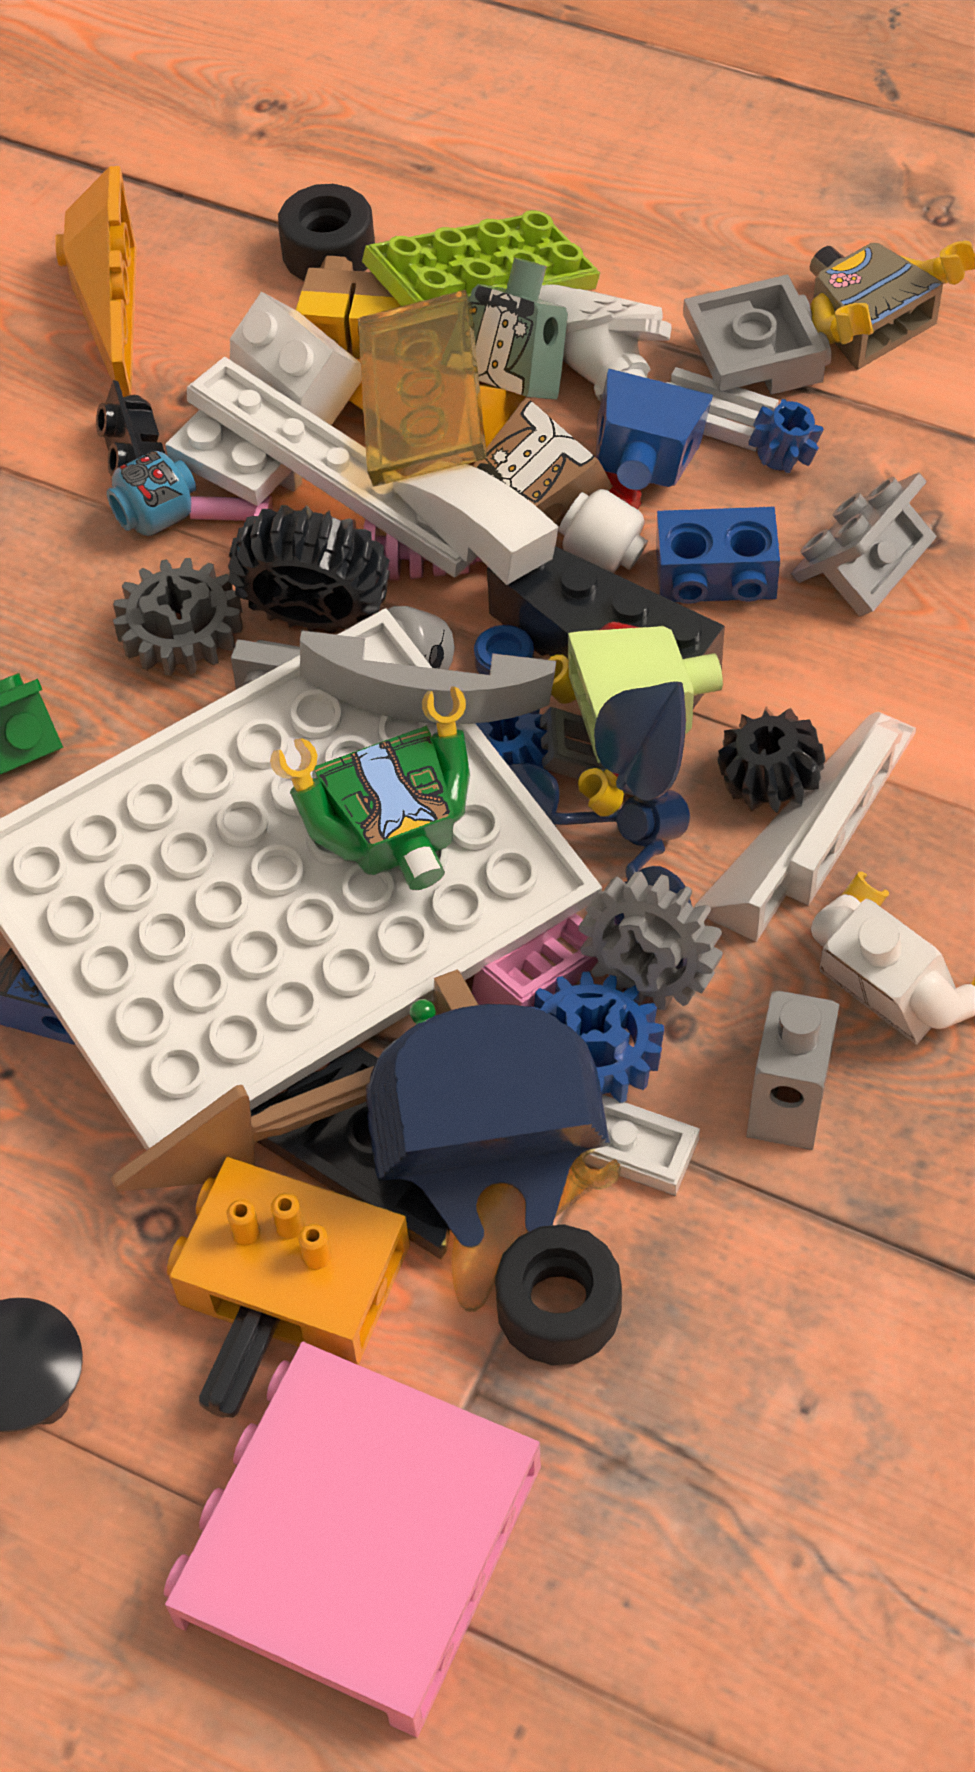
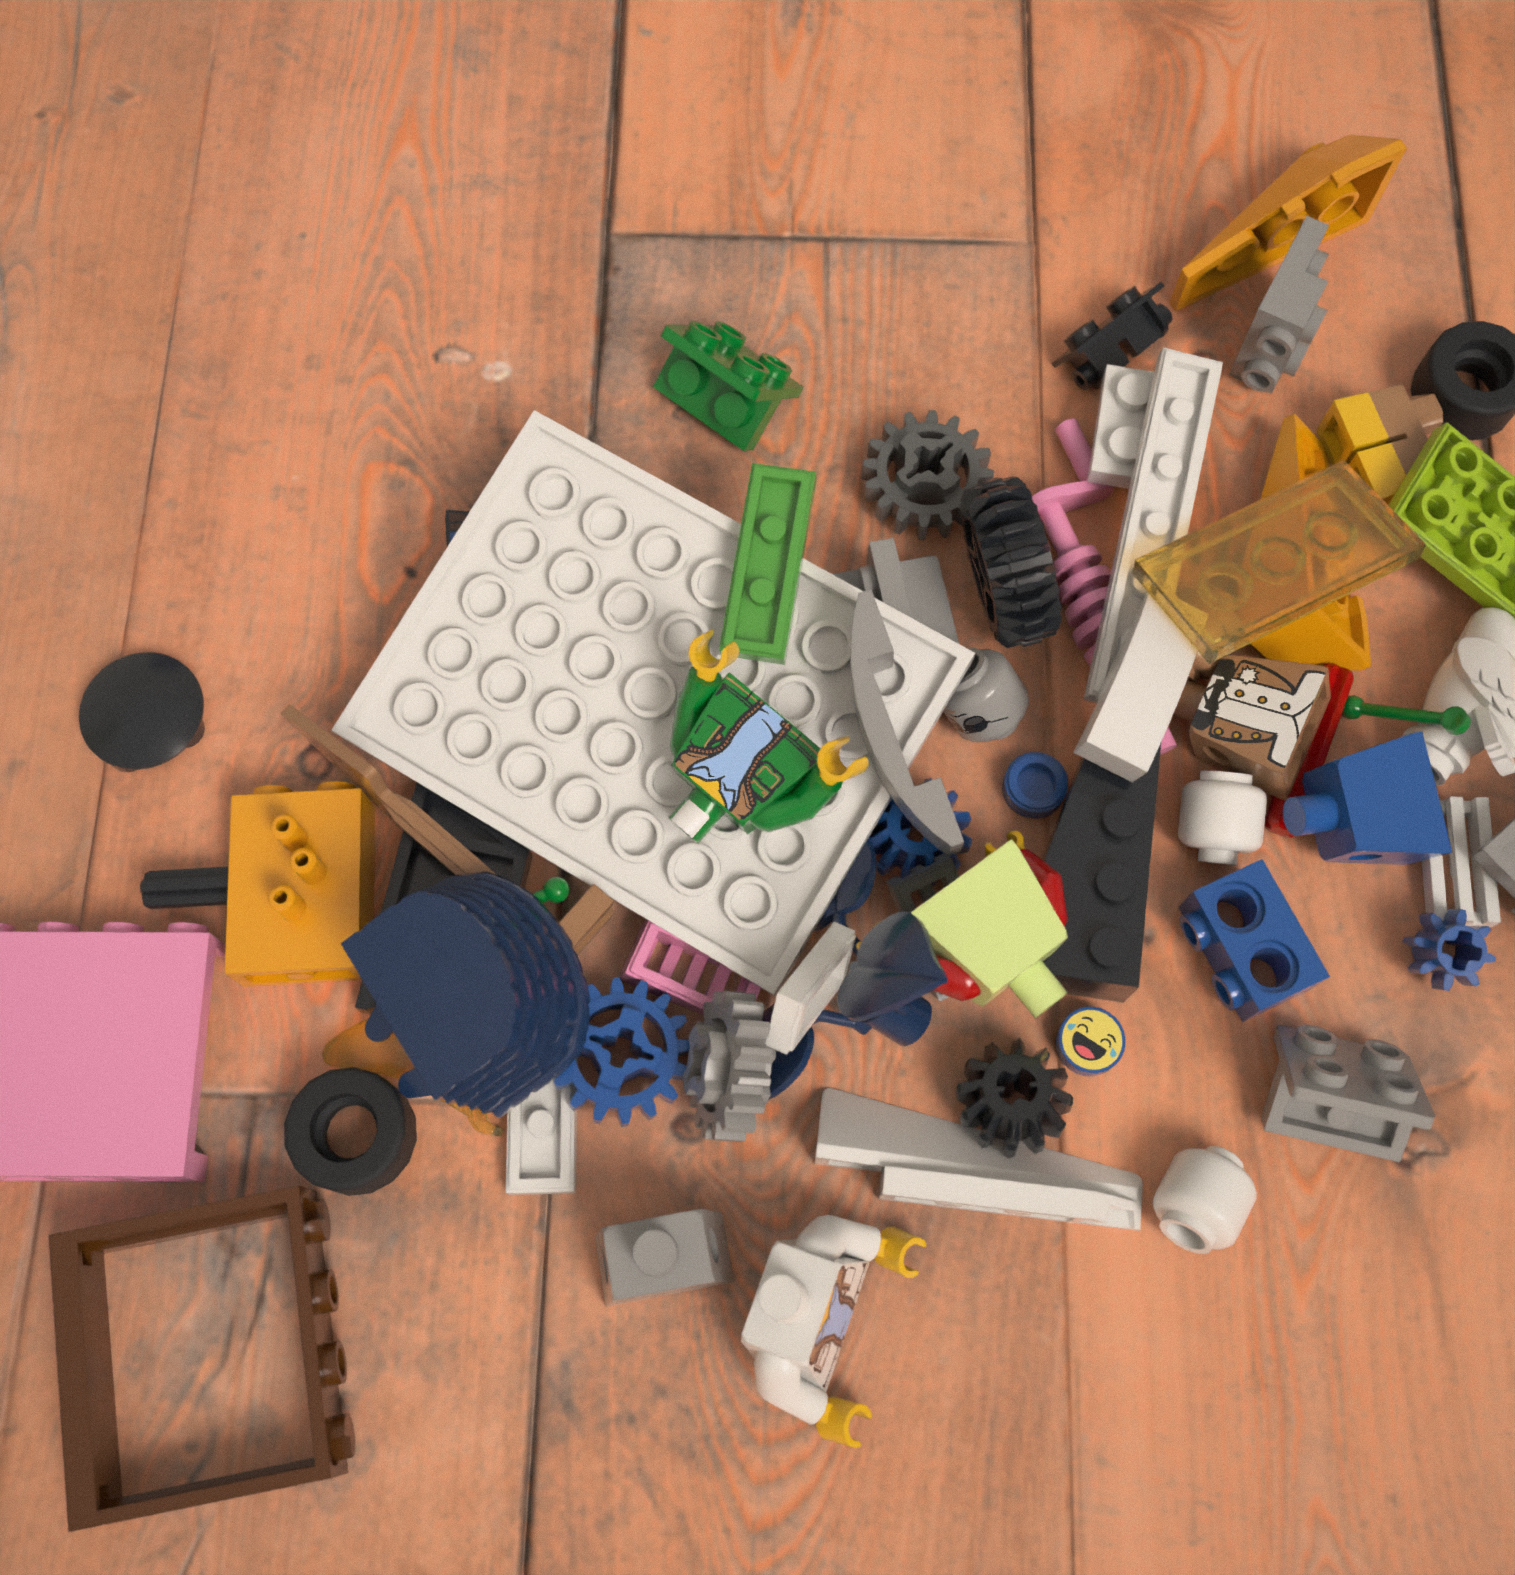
camera: 65 degrees right, 15 degrees up
(151, 493) = (1053, 382): dark azure head -> none
(190, 305) = (1286, 314): none -> light grey plate
(213, 715) = (768, 562): none -> bright green tile
(295, 358) = (1263, 428): white slope -> none
(519, 334) = (1417, 621): torso -> none
(610, 346) = (1453, 719): none -> green hinge
(612, 844) = (810, 988): none -> white tile
(689, 1617) = (86, 1356): none -> reddish brown window
(746, 694) = (1090, 1041): none -> tile
(912, 666) = (1204, 1199): none -> white head

